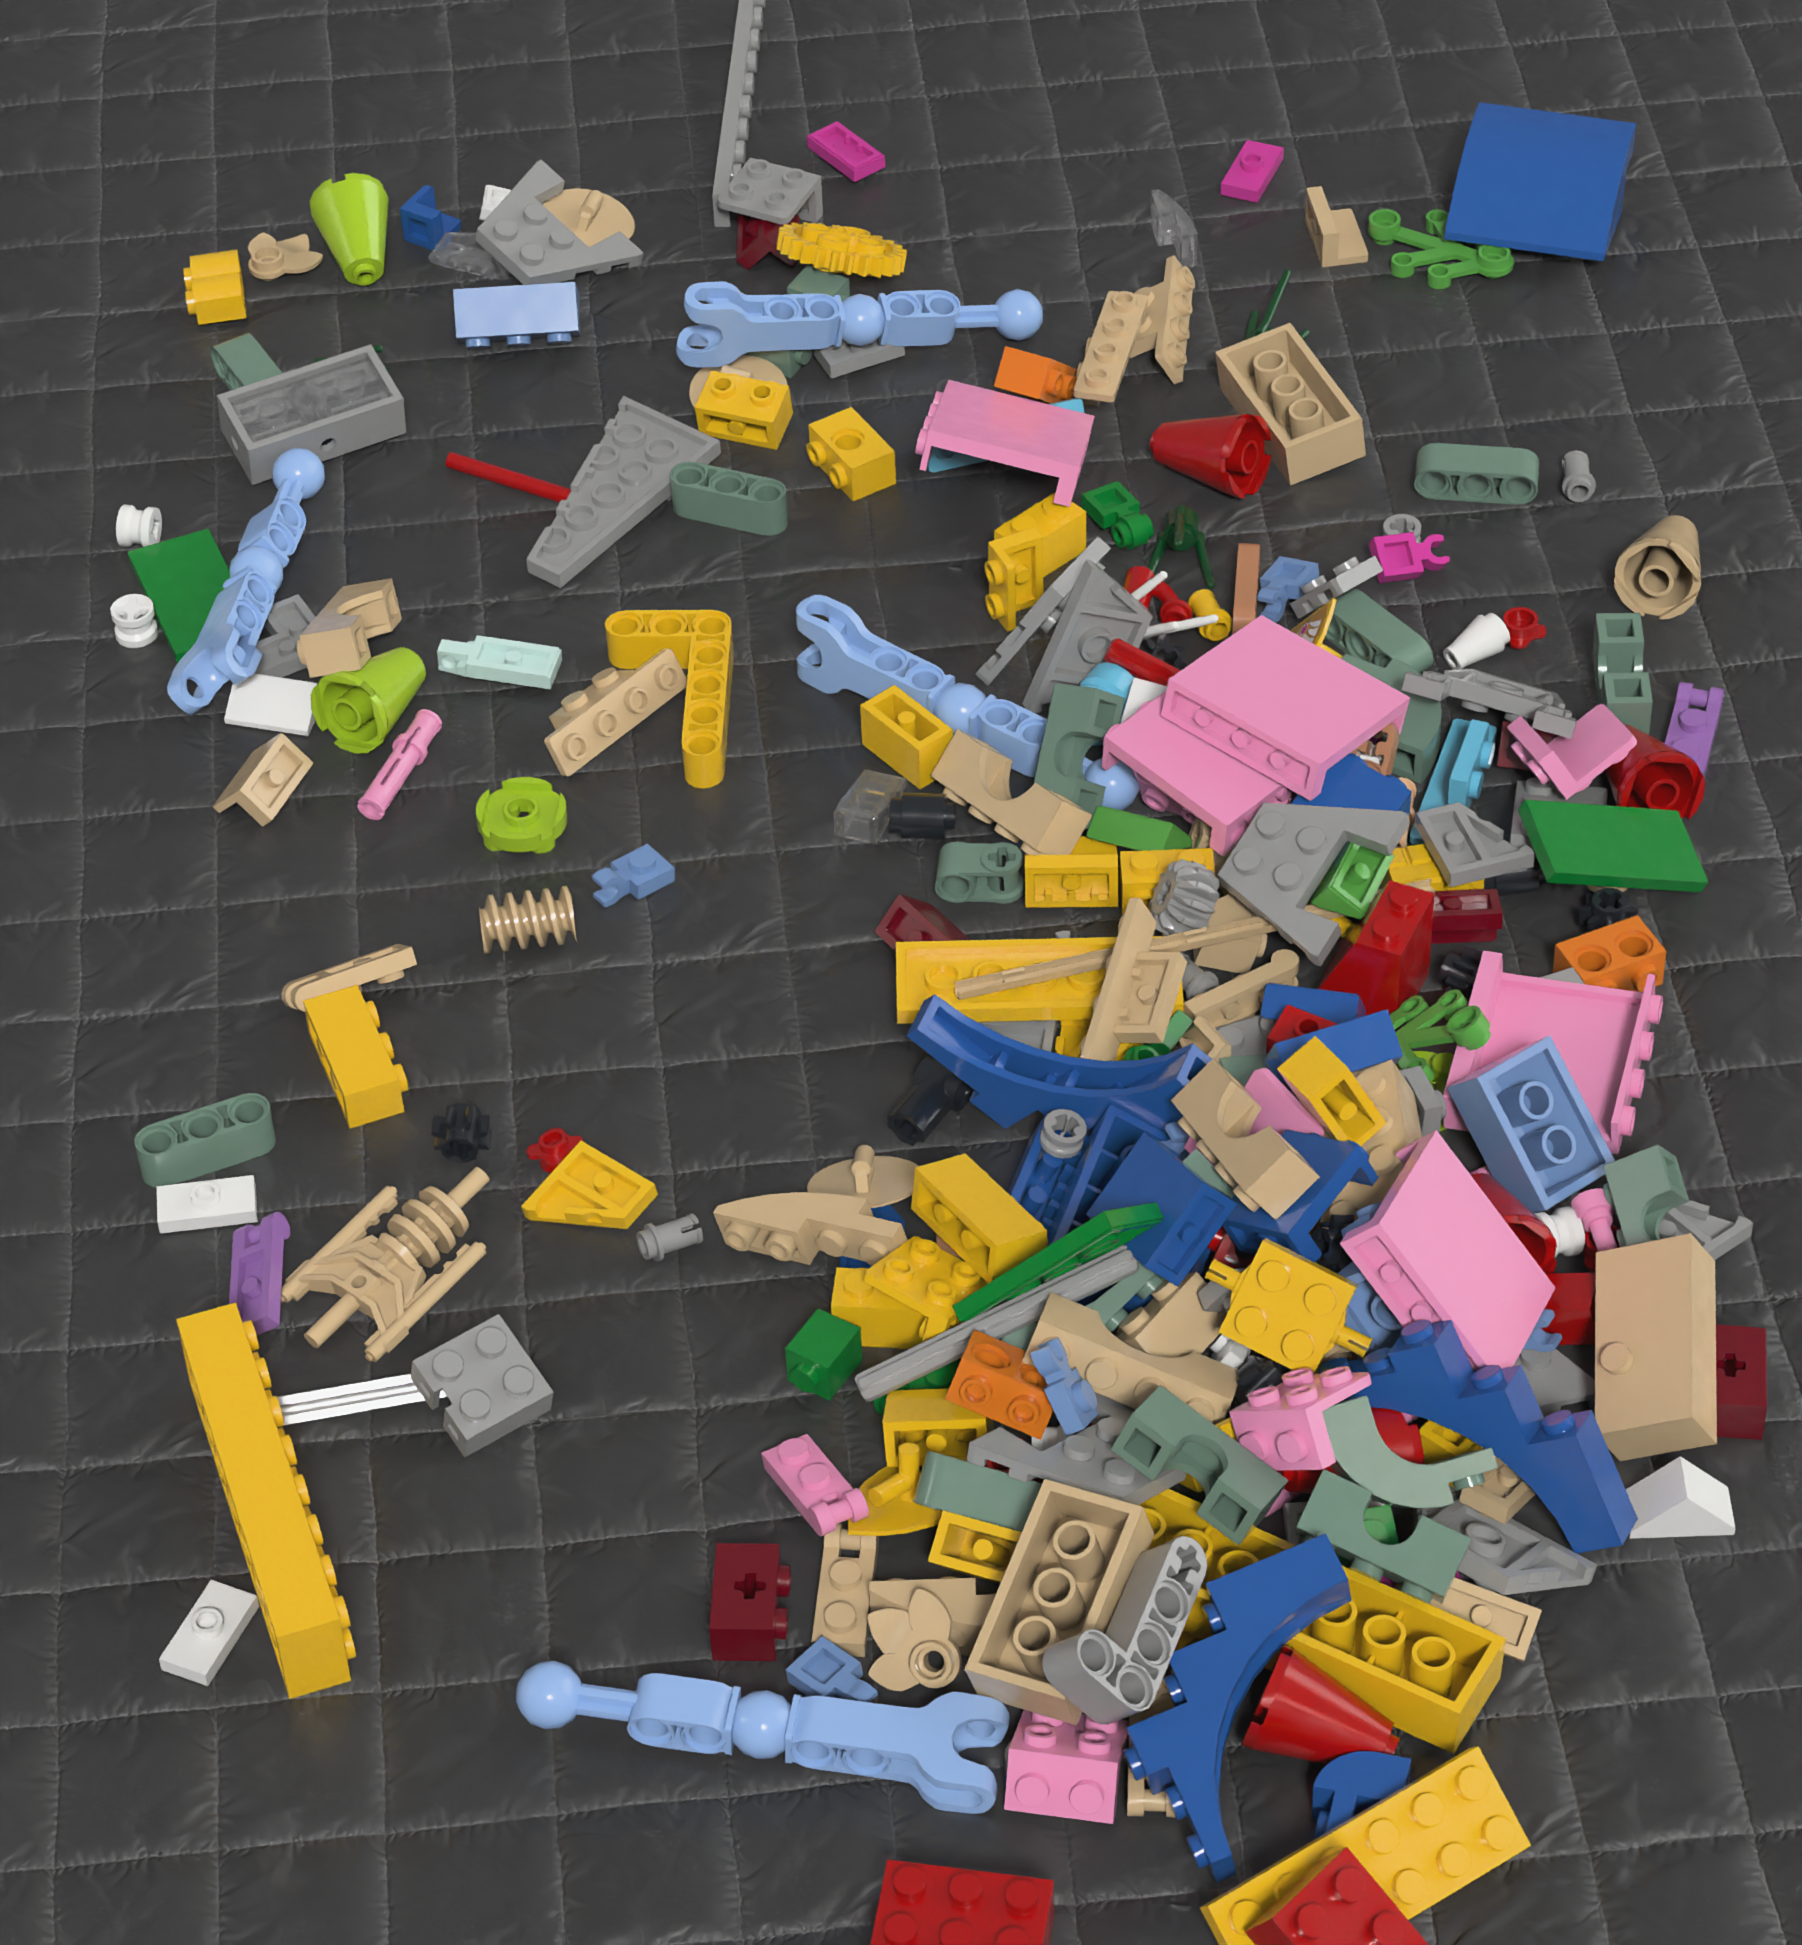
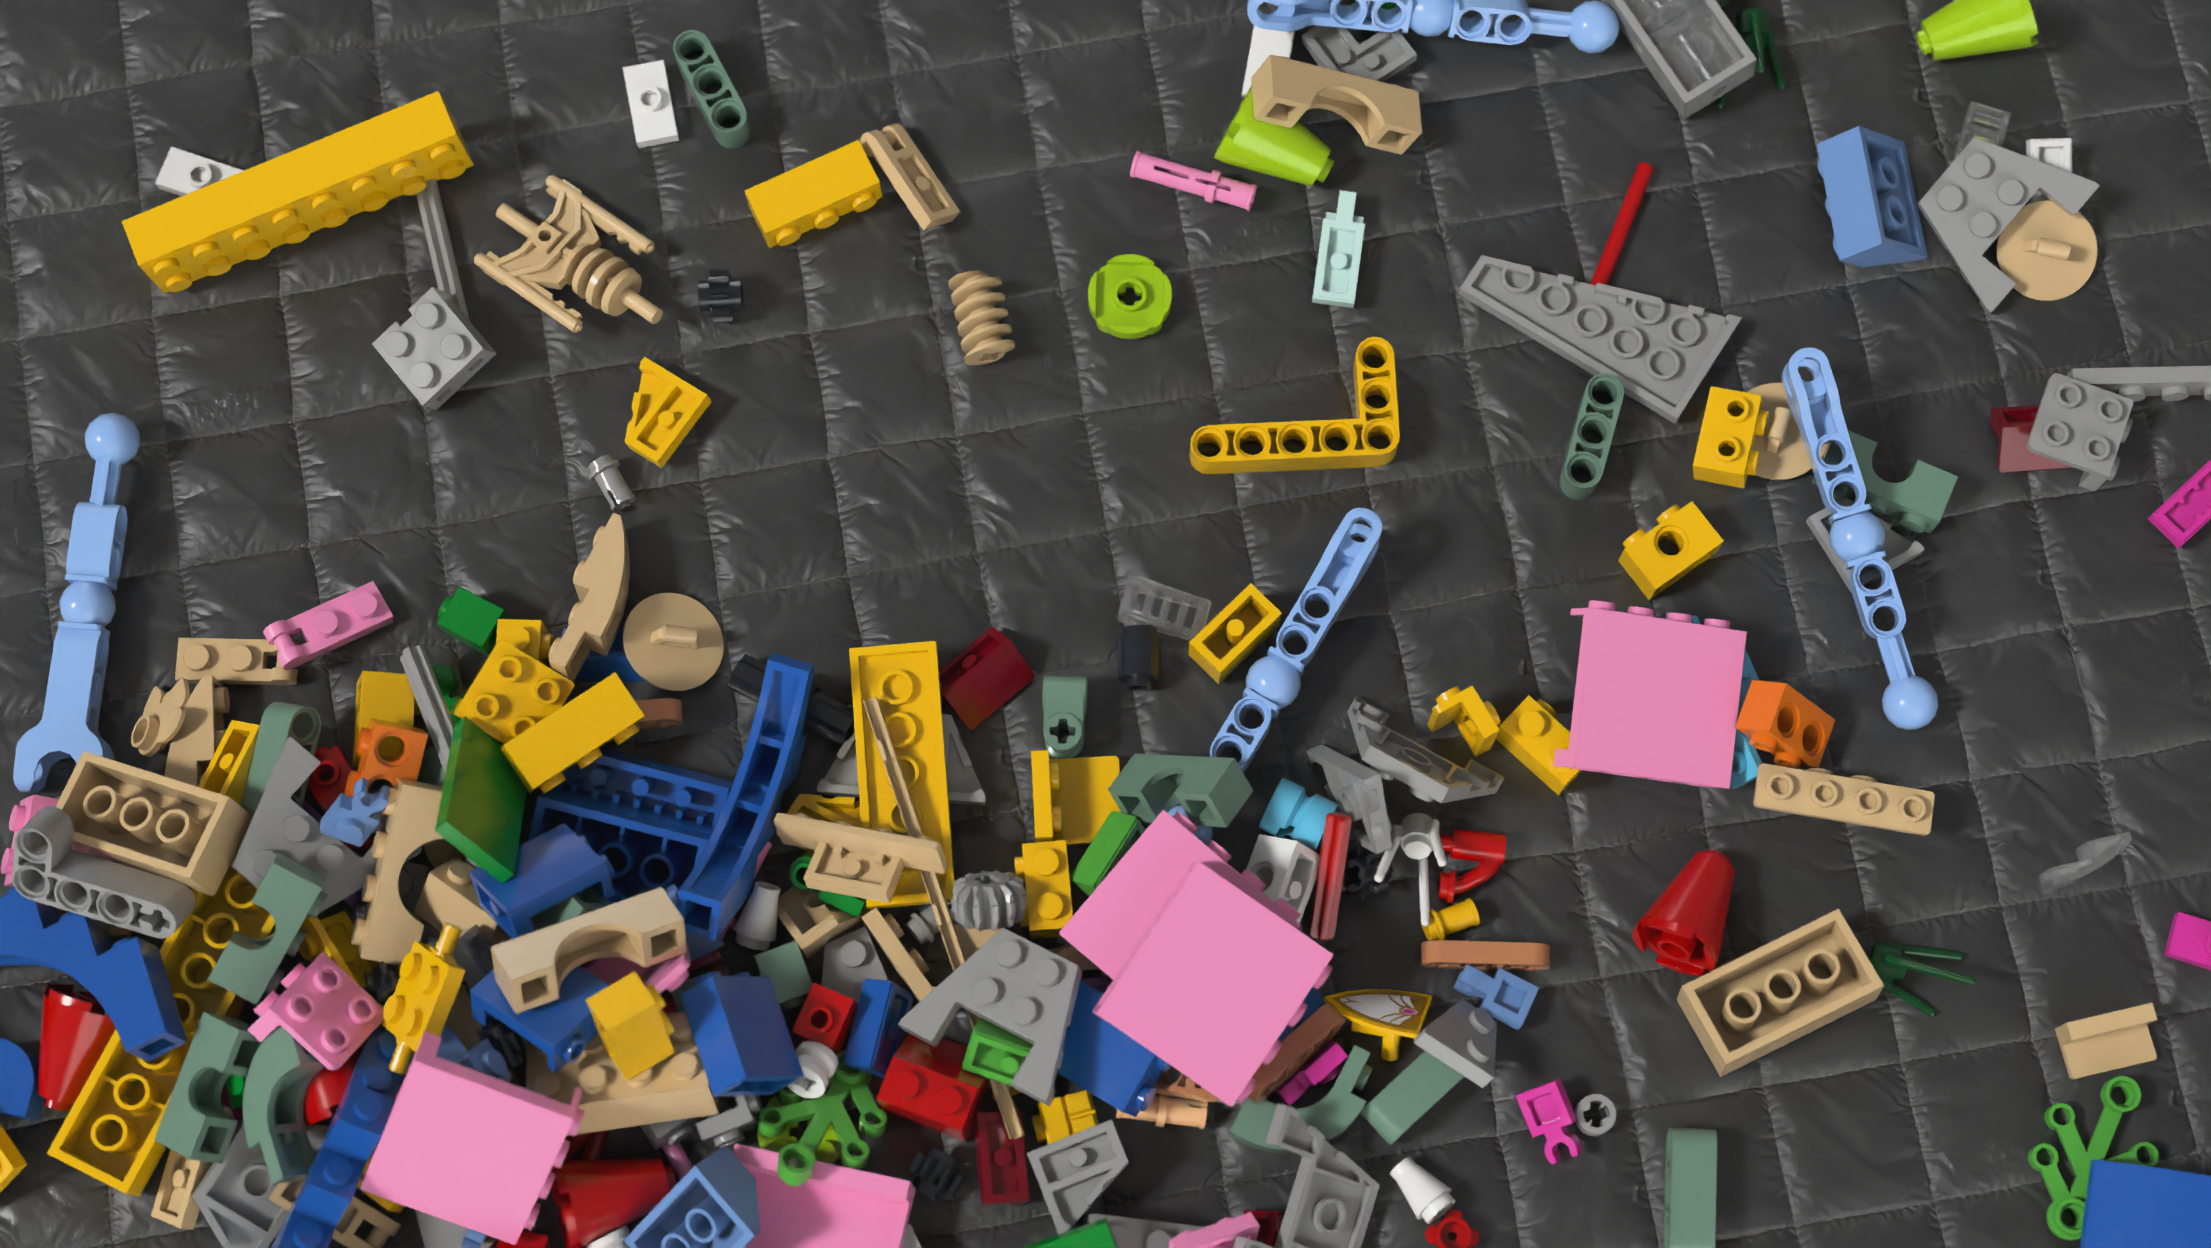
camera: 85 degrees right, 30 degrees up
(258, 1271) = (559, 154): medium lavender plate -> none
(266, 779) = (1165, 66): tan panel -> none
(422, 222) = (2026, 92): blue panel -> none
(552, 1148) = (712, 387): red plate -> none
(610, 709) = (1277, 355): tan bracket -> none
(634, 873) = (1061, 409): medium blue plate -> none
(746, 1602) = (192, 573): dark red brick -> none
(830, 1673) = (143, 653): medium blue plate -> none
(841, 249) = (1991, 510): yellow gear -> none
(890, 1499) = (322, 686): yellow shield -> none
(981, 775) = (1175, 704): tan arch -> none
(1057, 1144) = (696, 817): light grey bush -> none
(1119, 509) = (1608, 816): green plate -> none
(1167, 319) = (1933, 860): tan bracket -> none
(1180, 534) = (1573, 884): dark green plant -> none
(1459, 767) = (1211, 1164): medium azure bracket -> none

